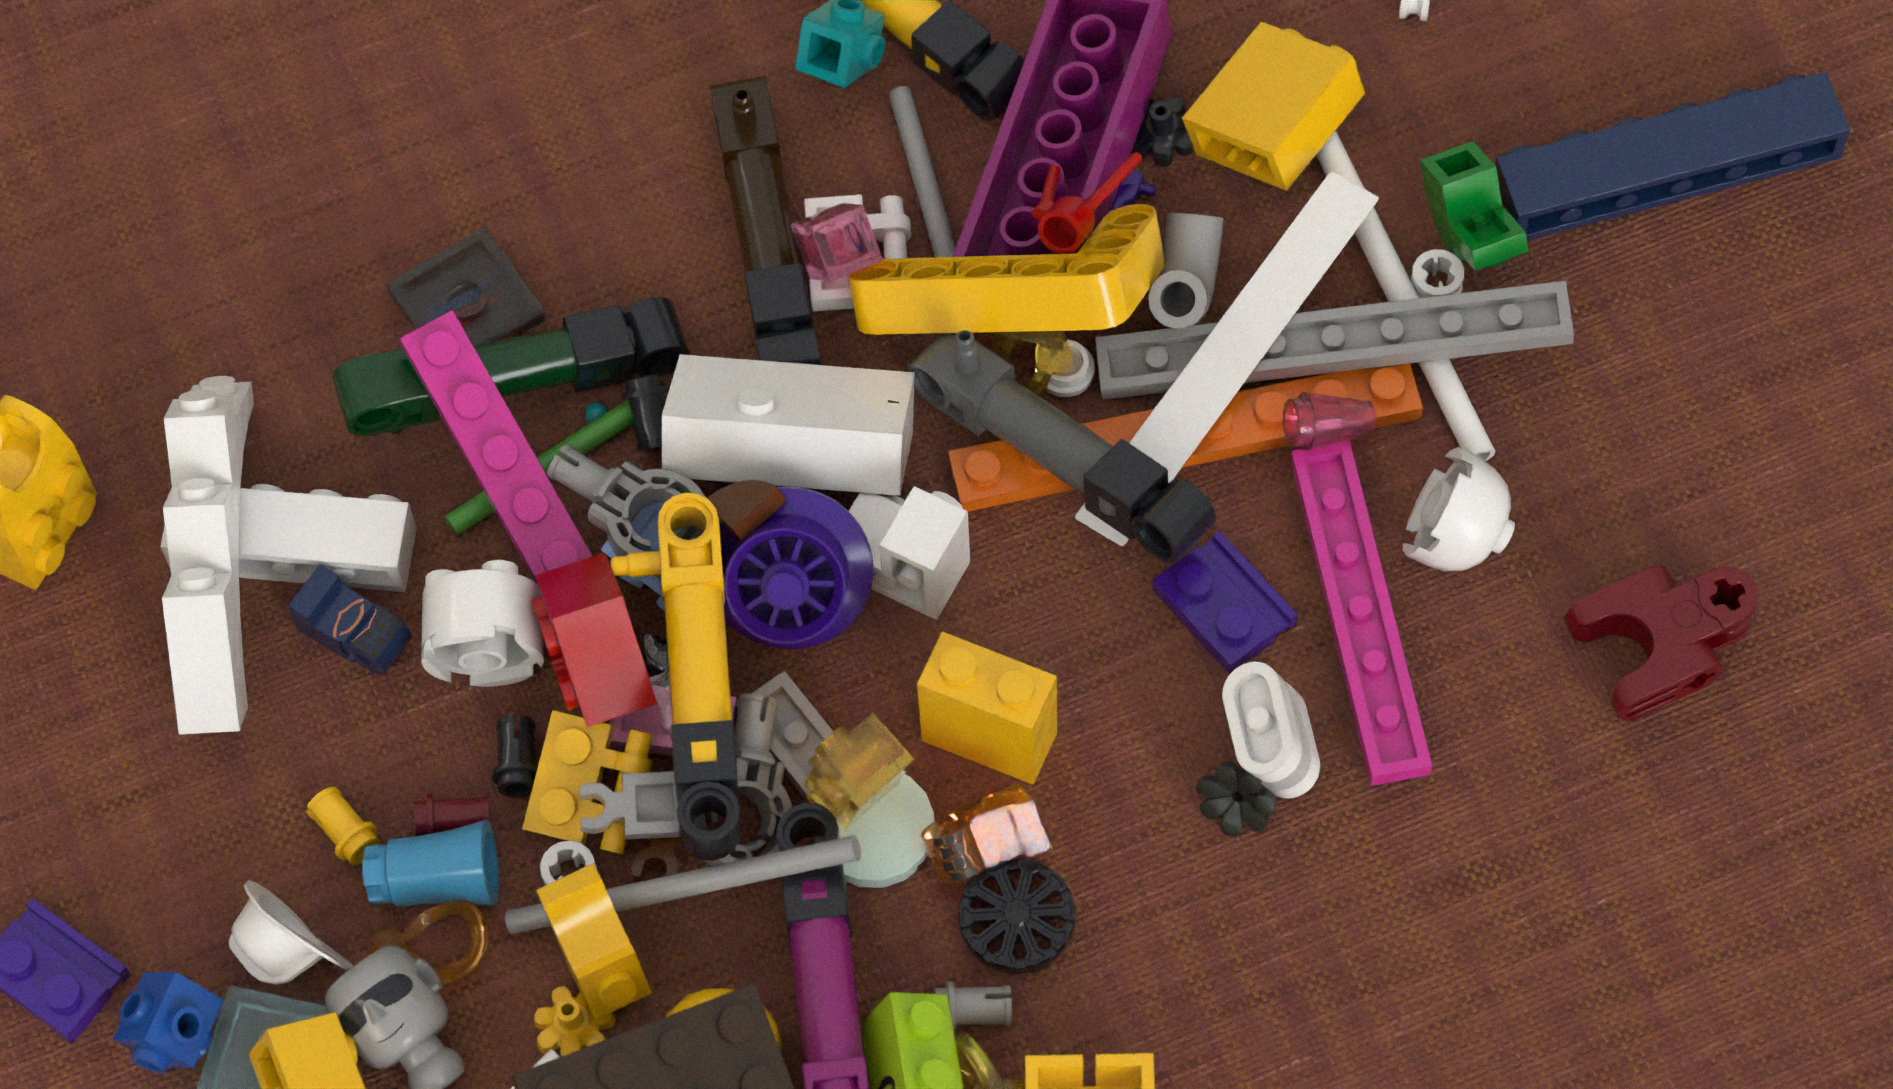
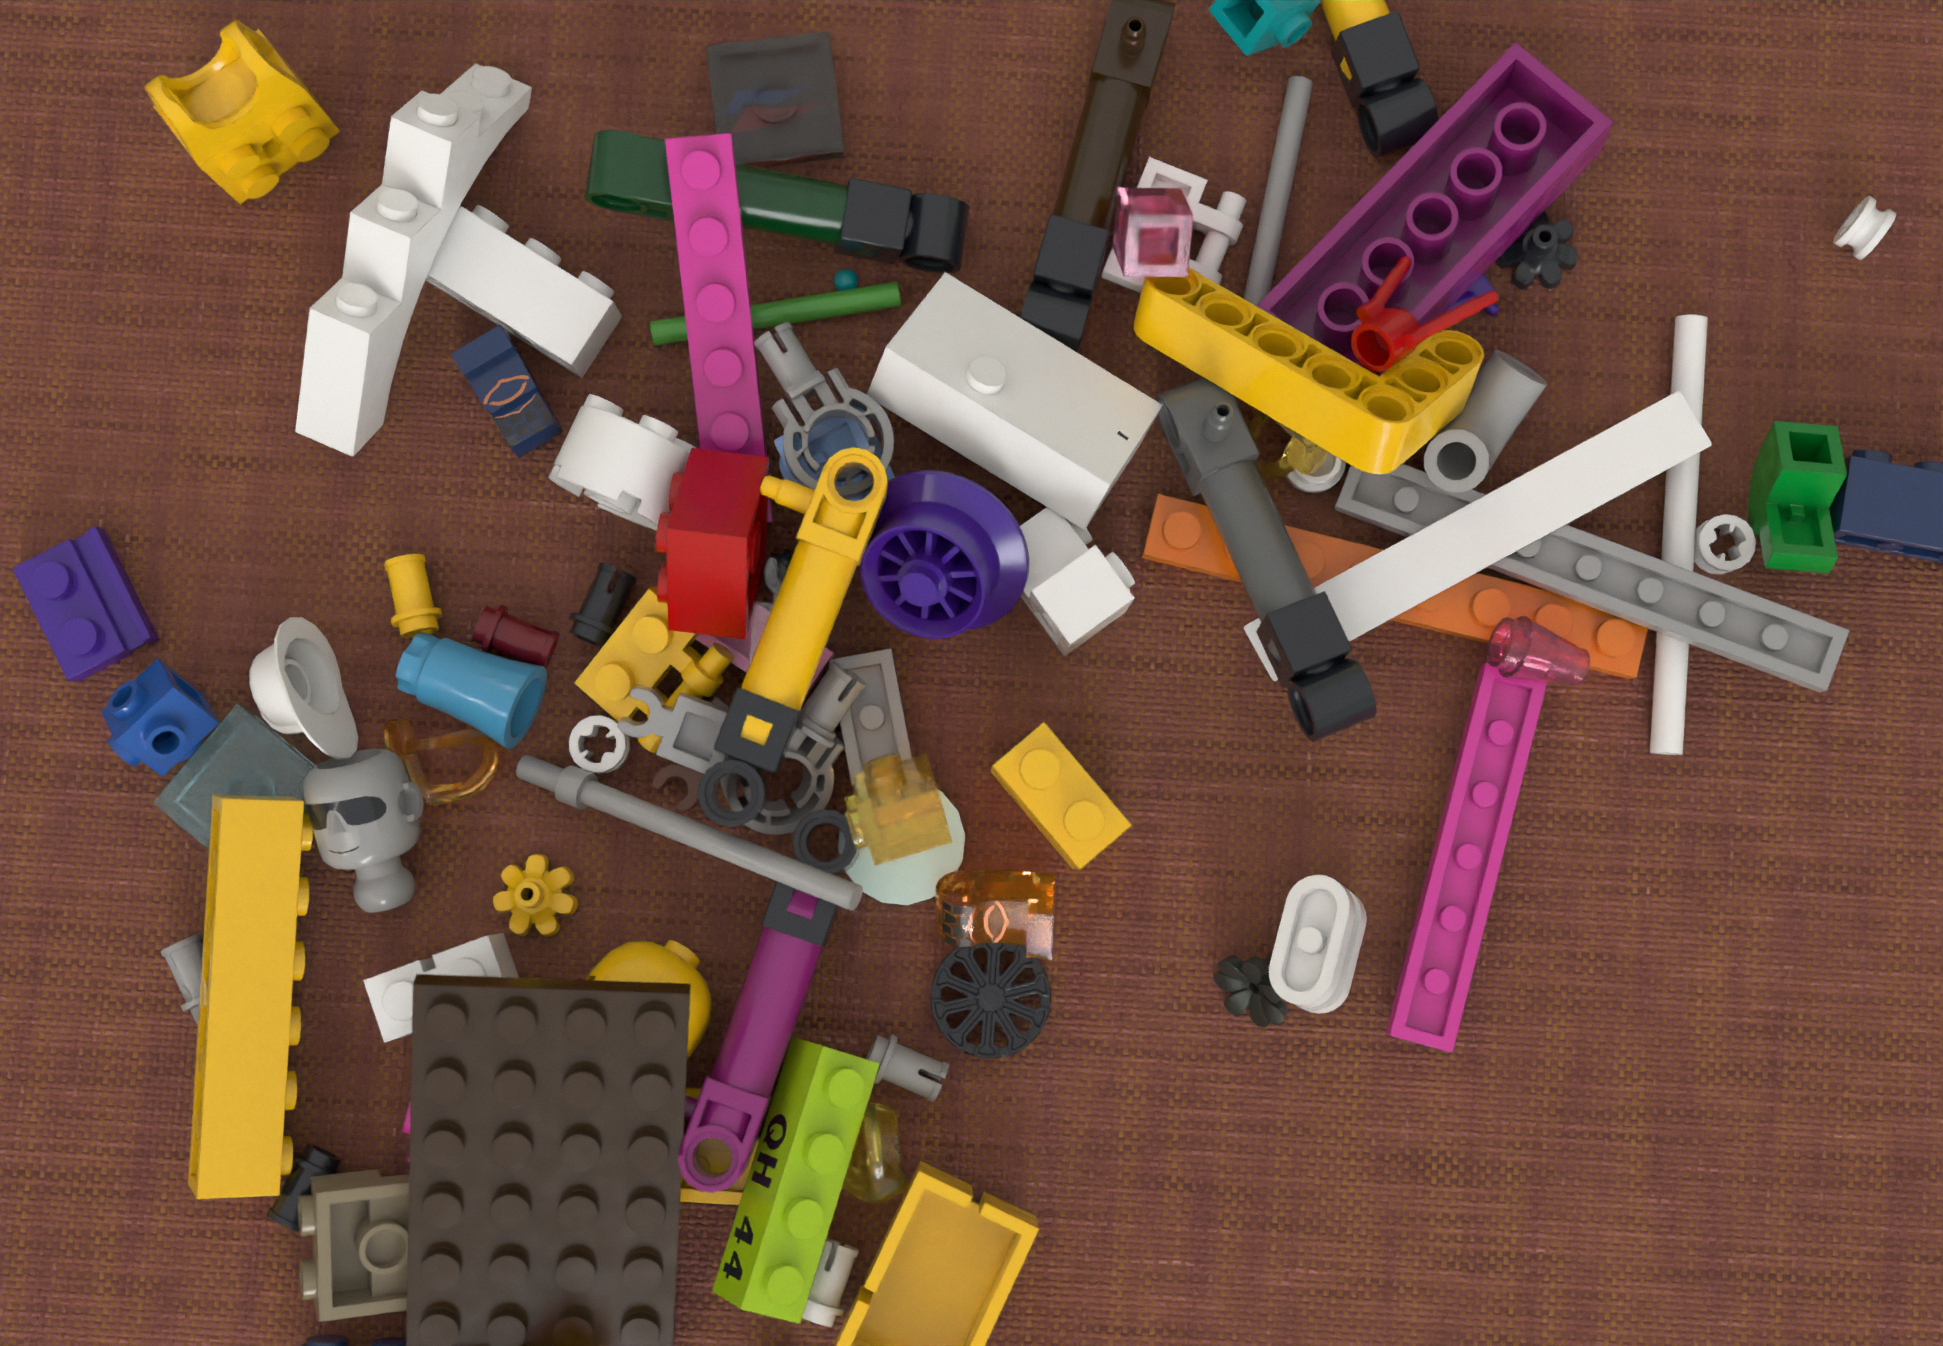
camera: 20 degrees right, 20 degrees up
(593, 941) = (578, 847): yellow arch -> none
(646, 408) = (891, 306): black pin -> none
(746, 505) = (919, 485): reddish brown tile -> none
(1224, 602) = (1344, 785): dark purple plate -> none
(1274, 105) = (1662, 285): yellow brick -> none
(1460, 515) = (1611, 811): white cylinder -> none
(1672, 625) = (1753, 1028): dark red piece -> none

